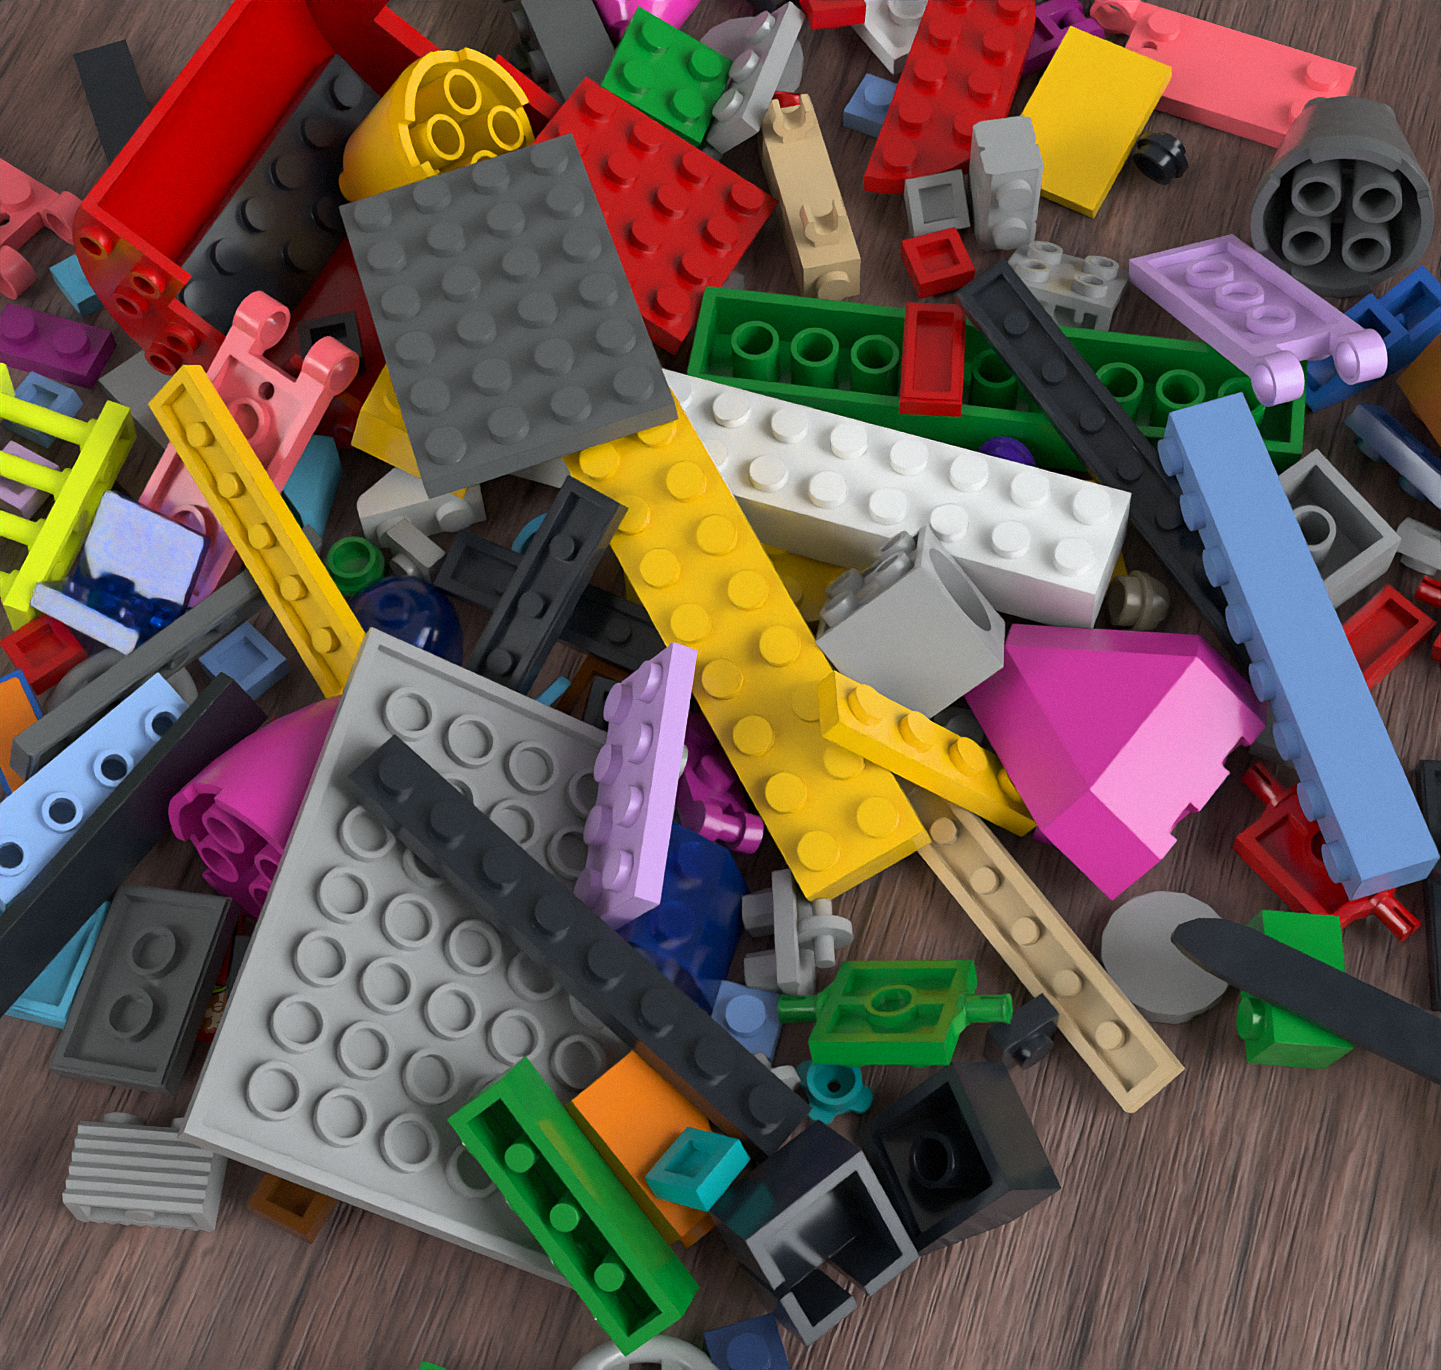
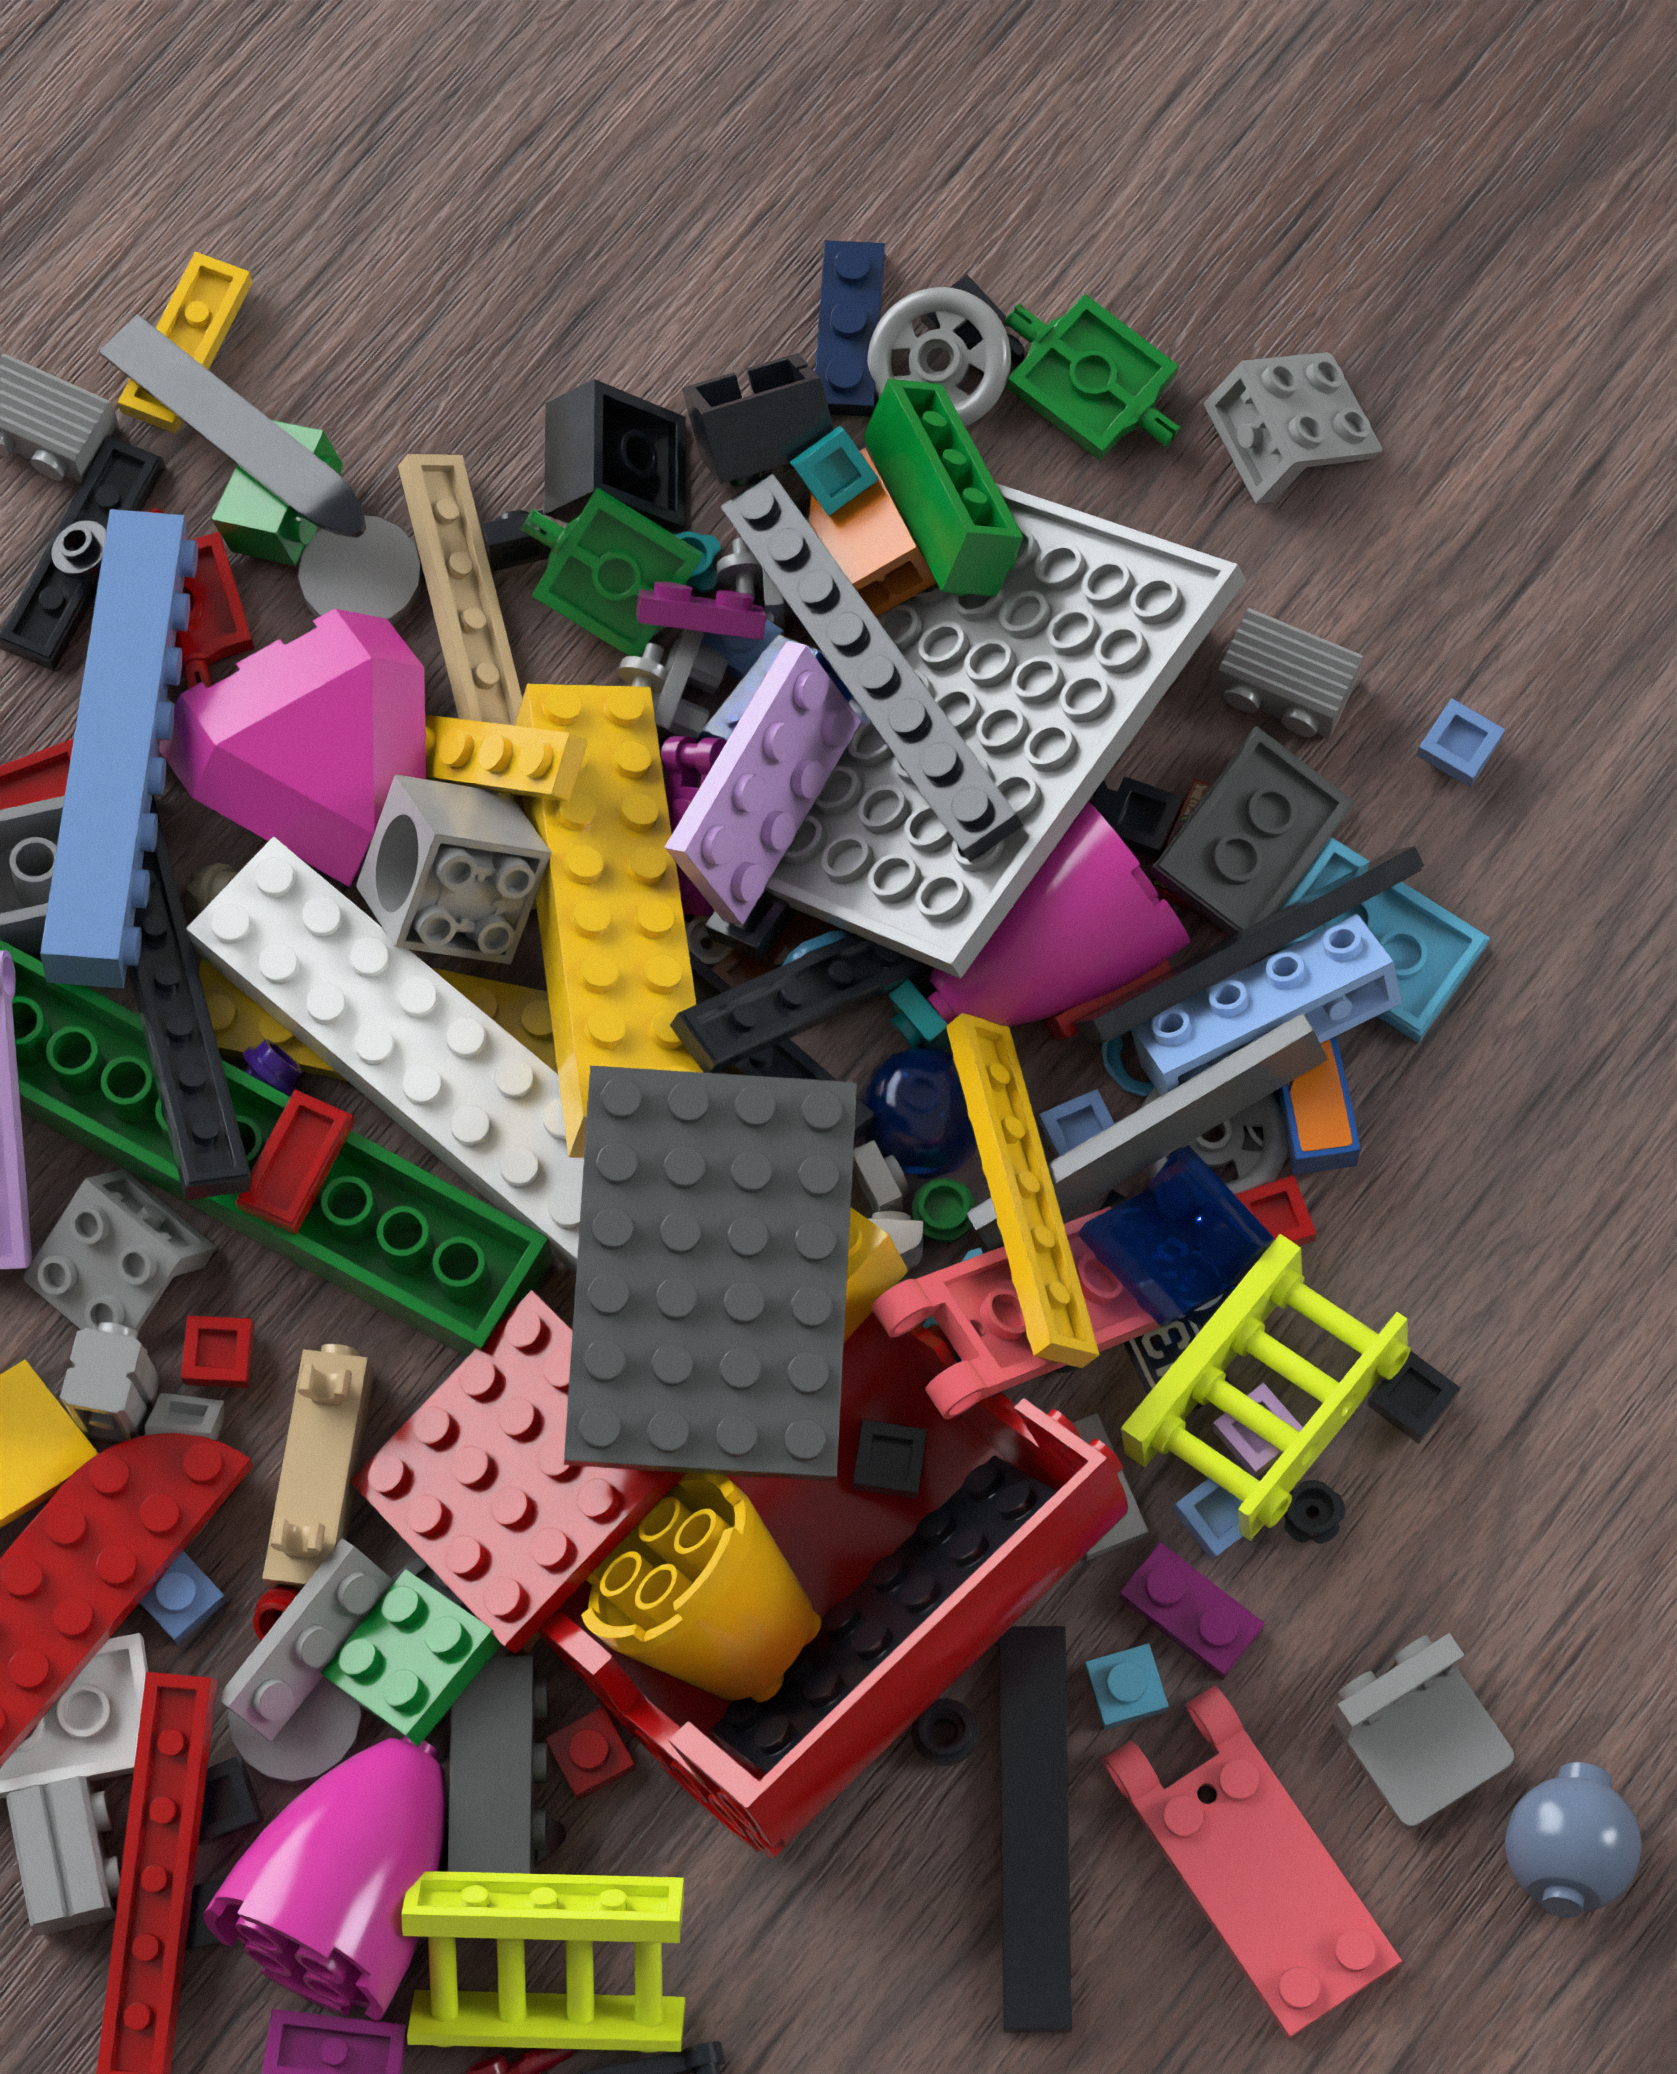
camera: 160 degrees left, 10 degrees up
(783, 981) = (675, 607): none -> magenta plate

